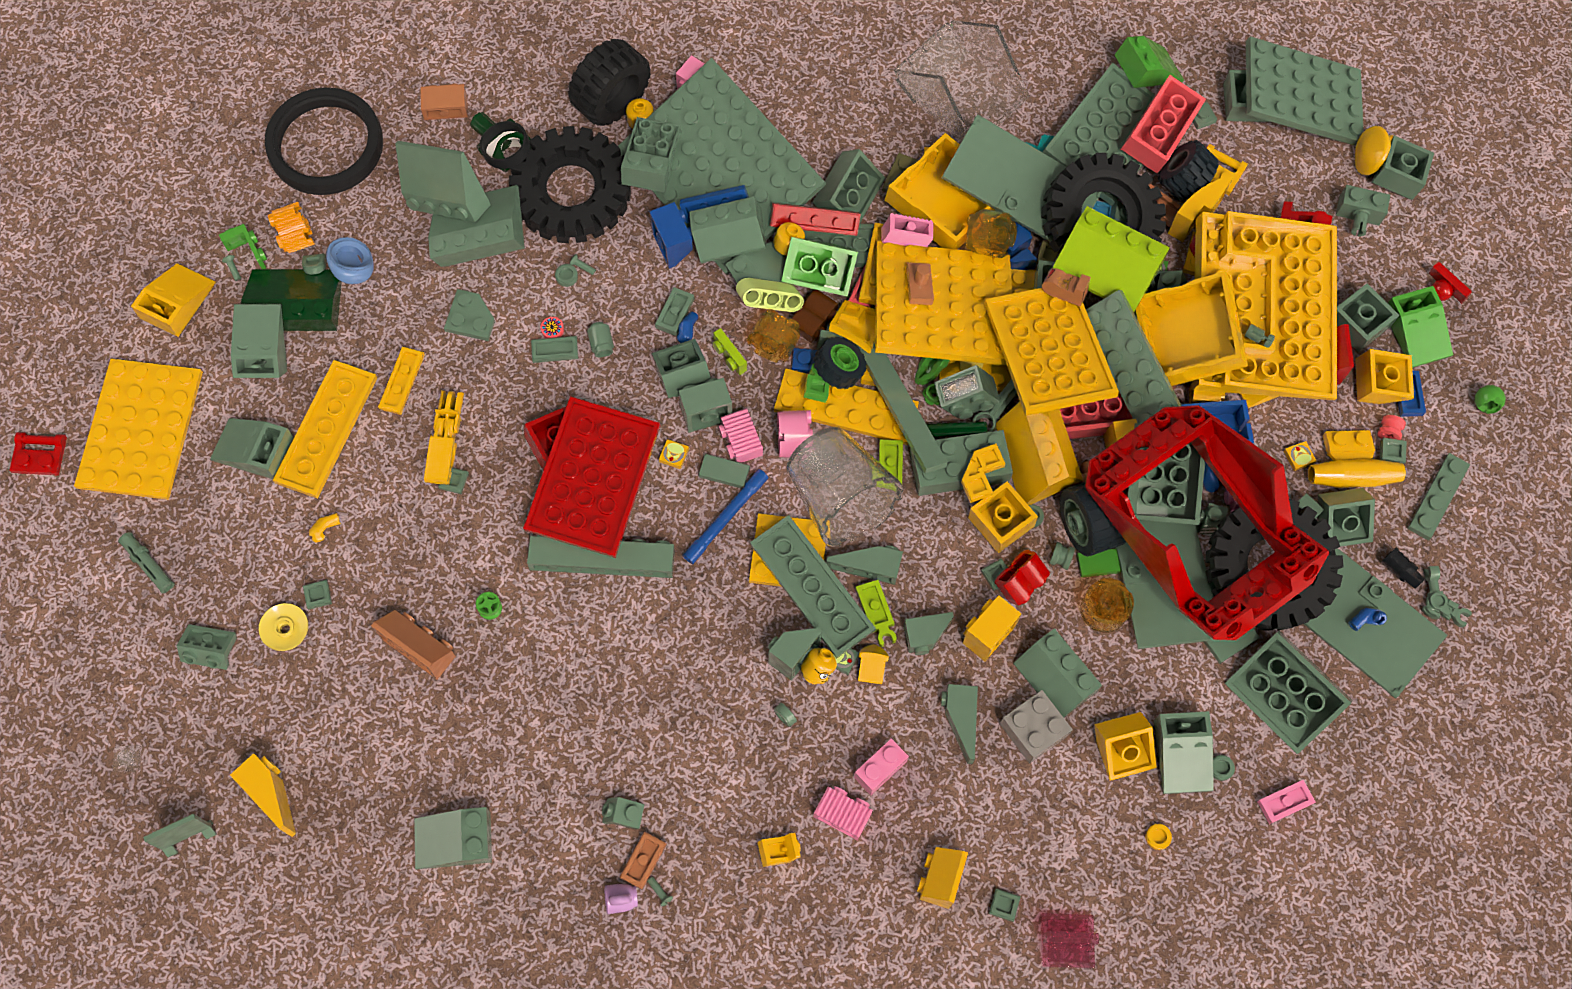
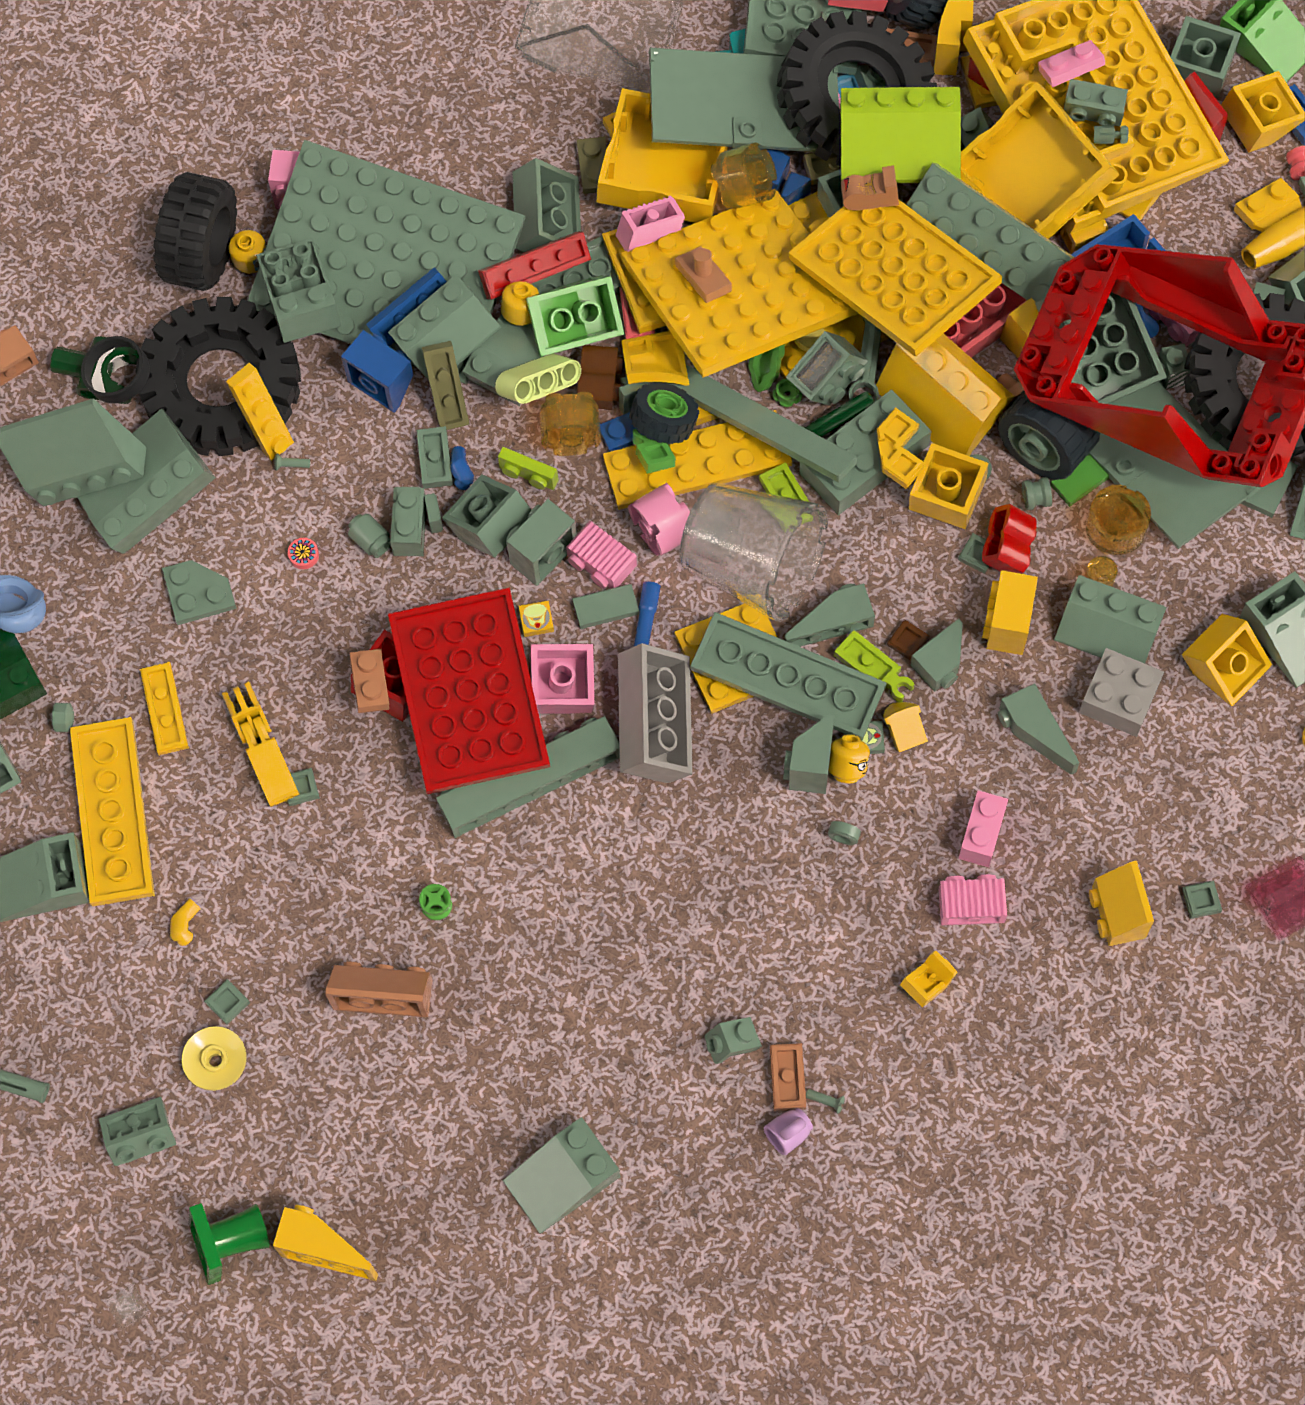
camera: 25 degrees left, 0 degrees up
(179, 831) = (252, 1343): sand green flag -> none
(210, 750) = (226, 1237): none -> green plant
(333, 350) = (62, 717): none -> sand green tile
(533, 434) = (369, 681): none -> nougat plate
(554, 349) = (321, 575): sand green tile -> none
(566, 275) = (279, 484): sand green tile -> none
(574, 219) = (260, 411): none -> yellow plate
(630, 344) = (408, 521): none -> sand green brick
(650, 347) = (433, 513): none -> sand green tile
(662, 503) = (562, 677): none -> bright pink brick
(706, 561) = (654, 713): none -> light grey brick
(707, 267) = (445, 385): none -> olive plate
(912, 606) = (908, 639): none -> reddish brown tile
(1076, 632) = (1103, 567): none -> clear yellow wheel
(1261, 272) = (1071, 63): none -> bright pink plate
(1261, 308) = (1095, 102): none -> sand green bracket
(1300, 456) = (1223, 244): tile -> none

